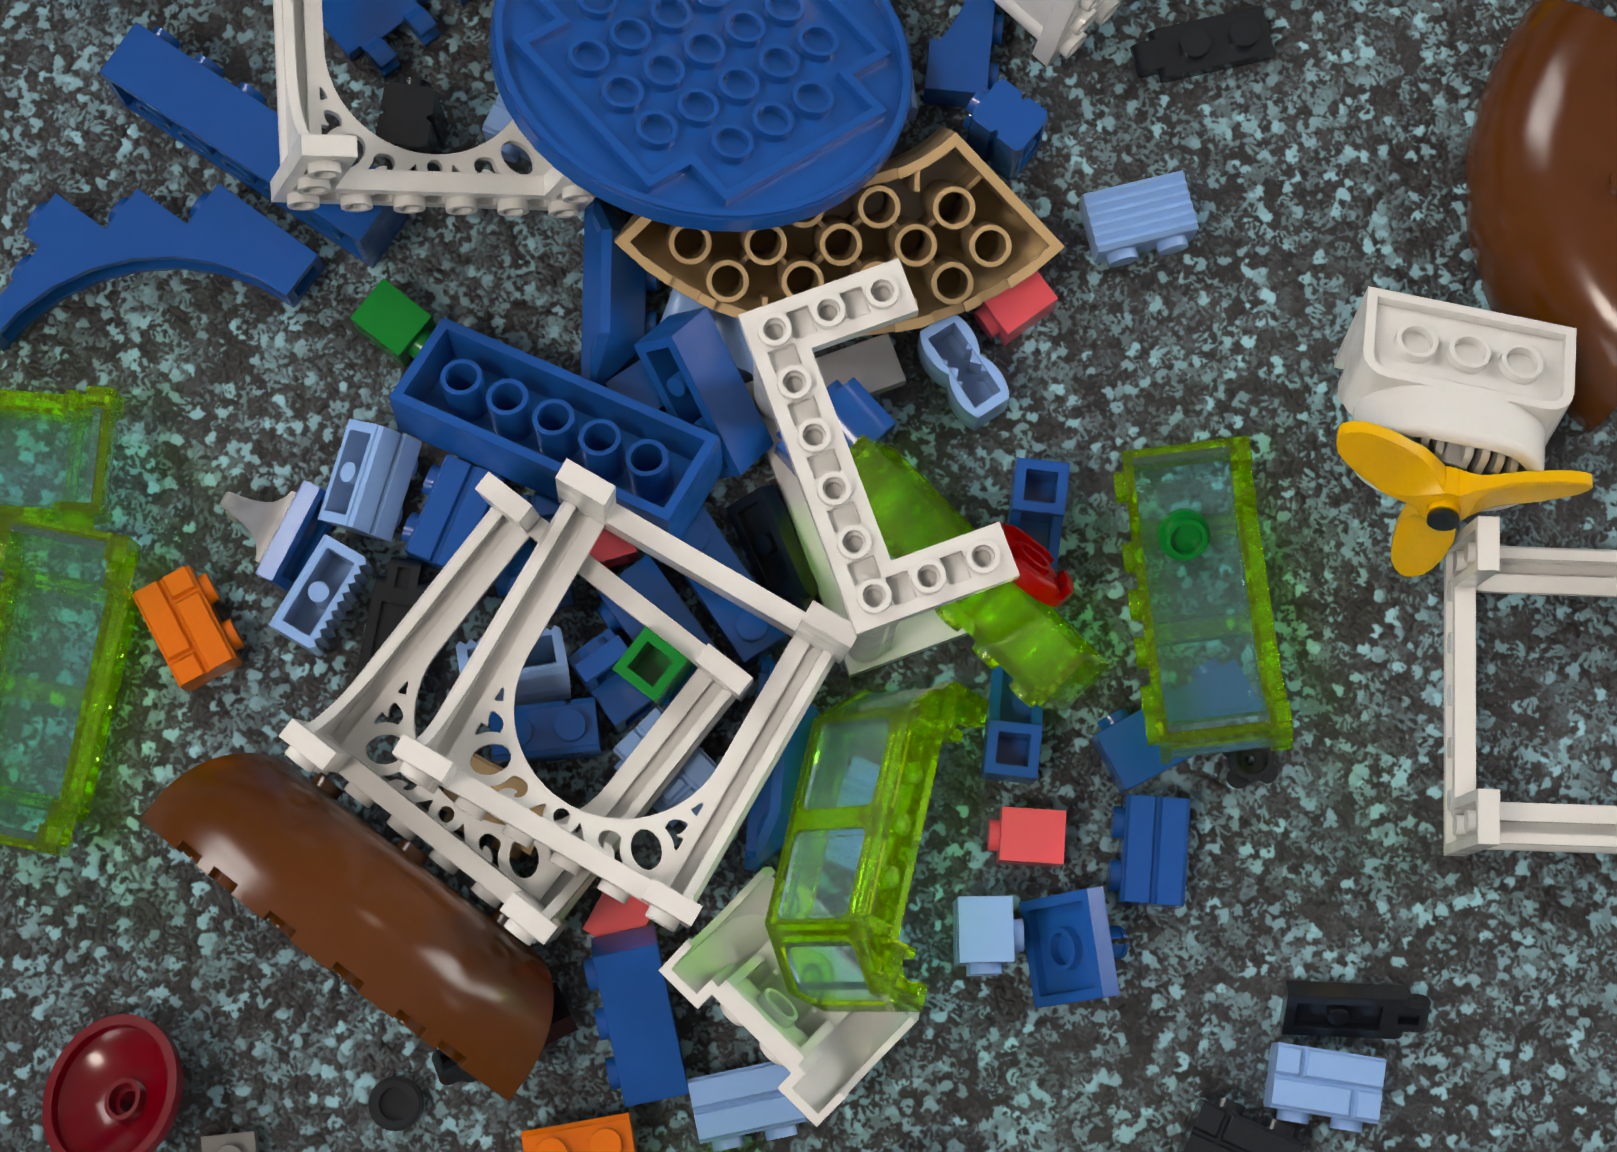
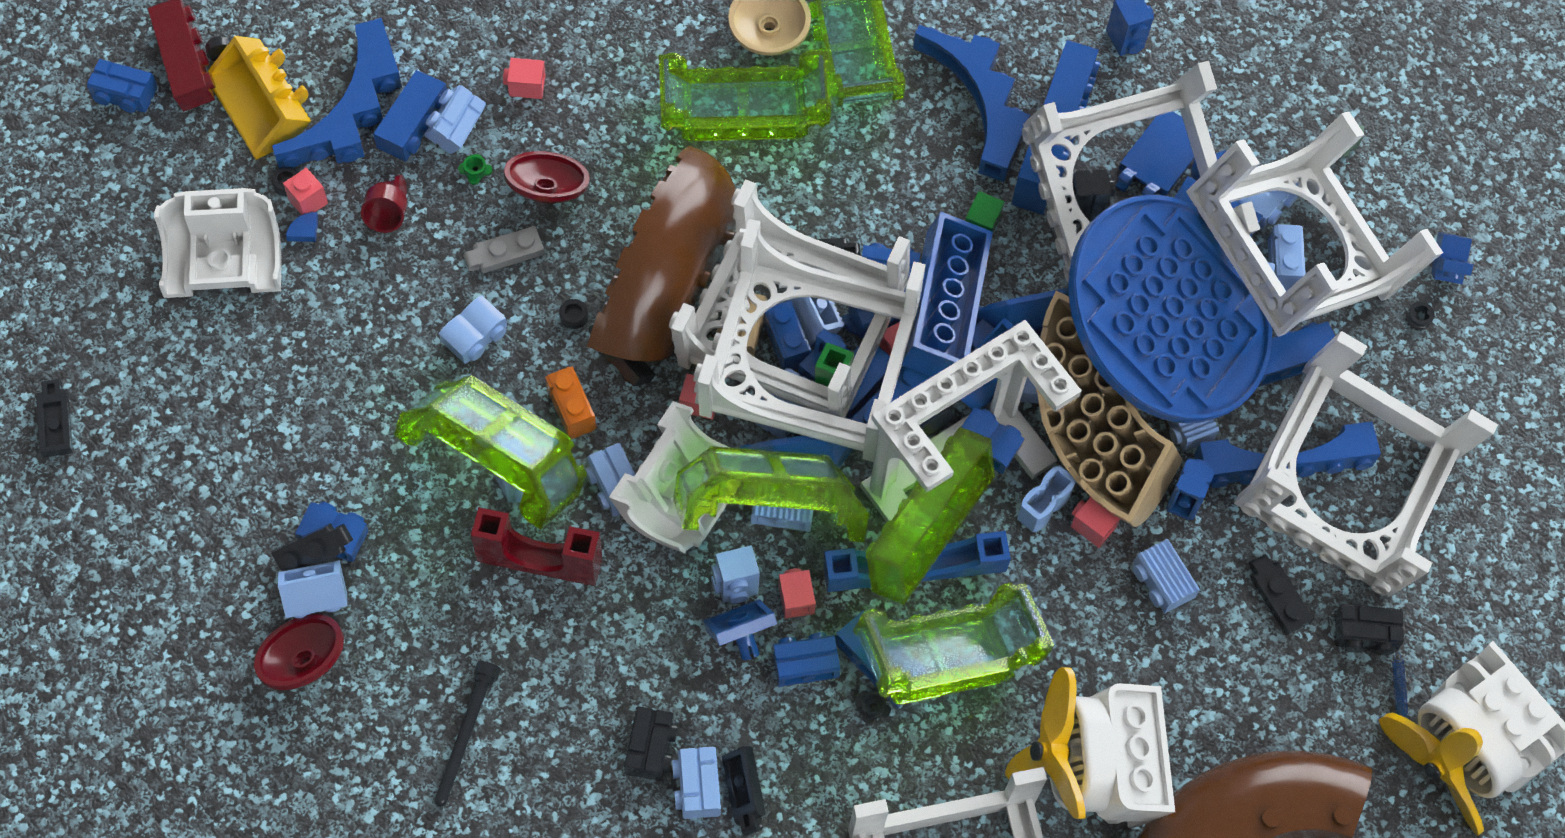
camera: 75 degrees right, 15 degrees down
(189, 627) = (794, 159): orange brick -> none
(282, 531) = (857, 192): blue piece -> none
(322, 595) = (828, 213): light blue brick -> none
(370, 480) = (893, 219): light blue brick -> none
(636, 1016) = (639, 414): blue brick -> none
(1035, 570) = (945, 543): red tile -> none
(1183, 534) = (990, 634): green plate -> none

